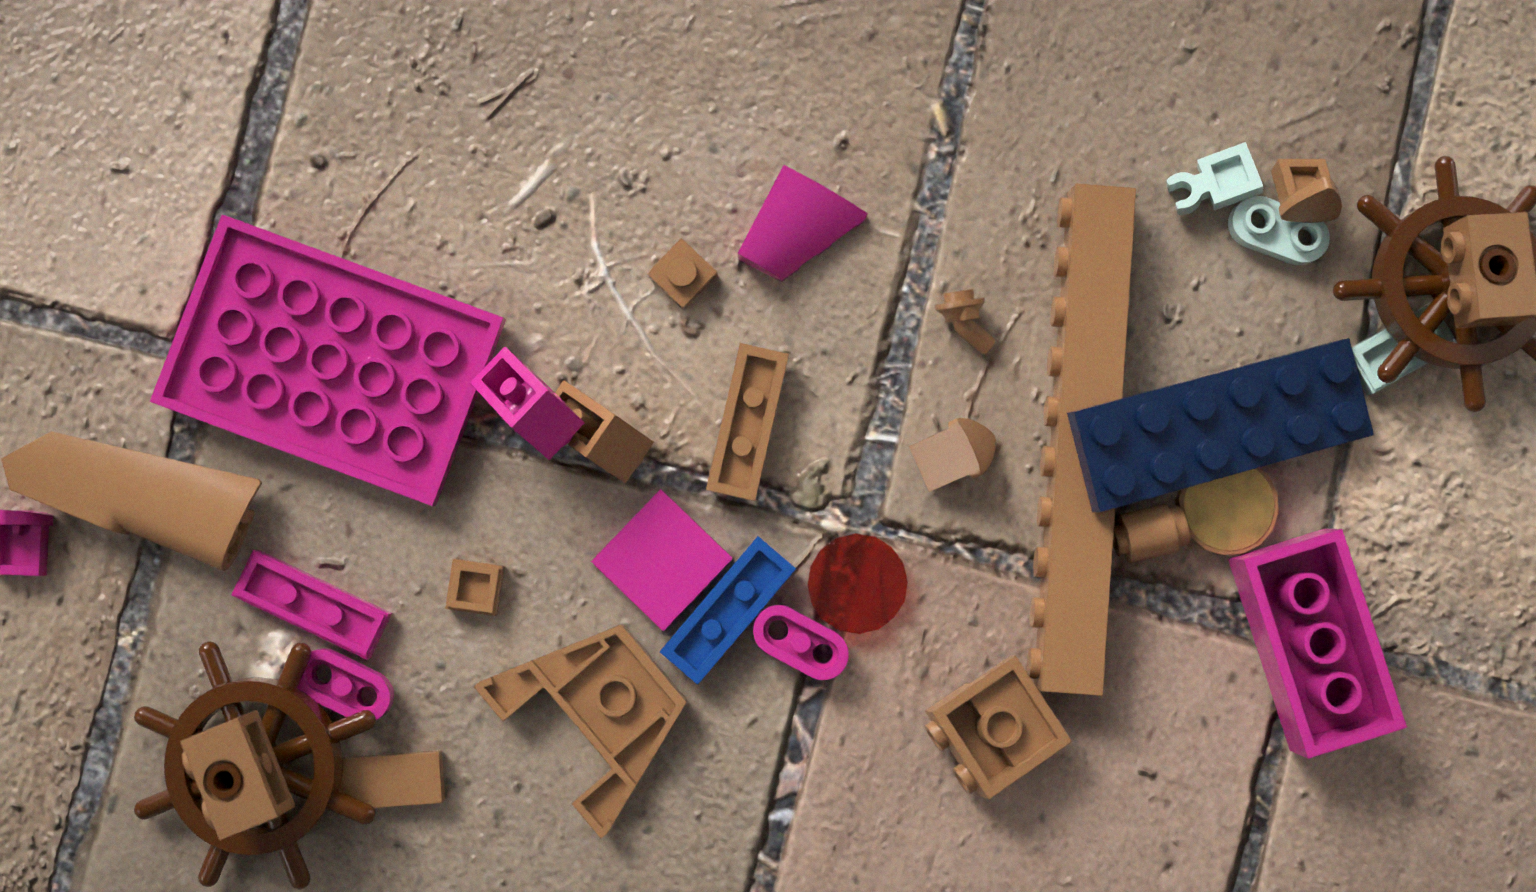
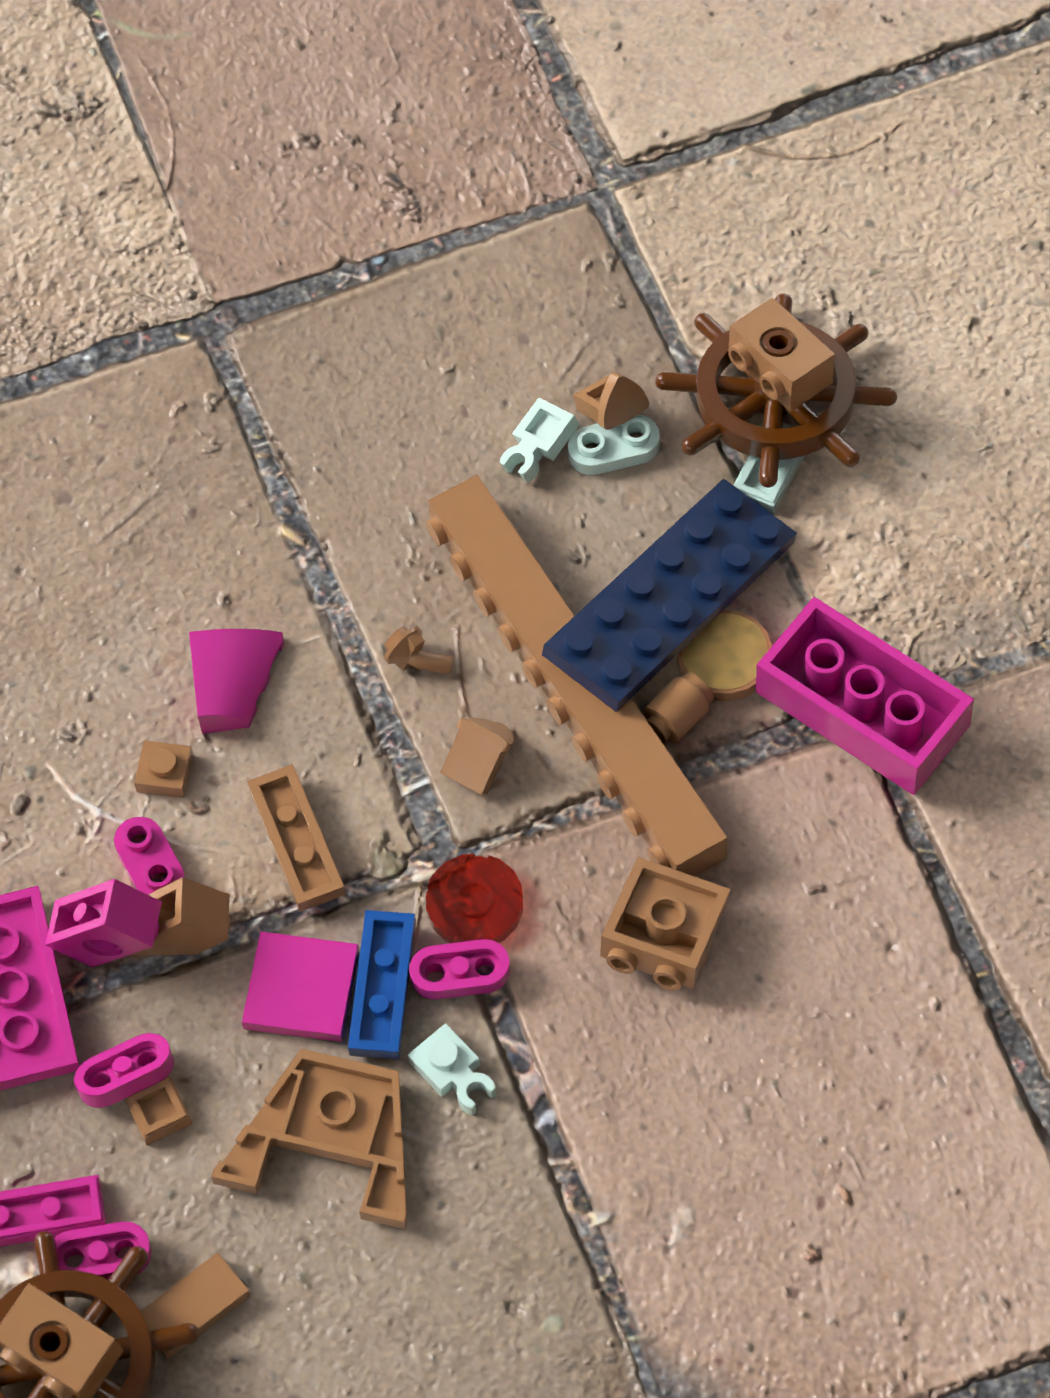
camera: 30 degrees left, 25 degrees down
(469, 535) = (124, 1070): none -> dark pink plate
(614, 354) = (148, 857): none -> dark pink plate
(734, 715) = (450, 1064): none -> light aqua plate

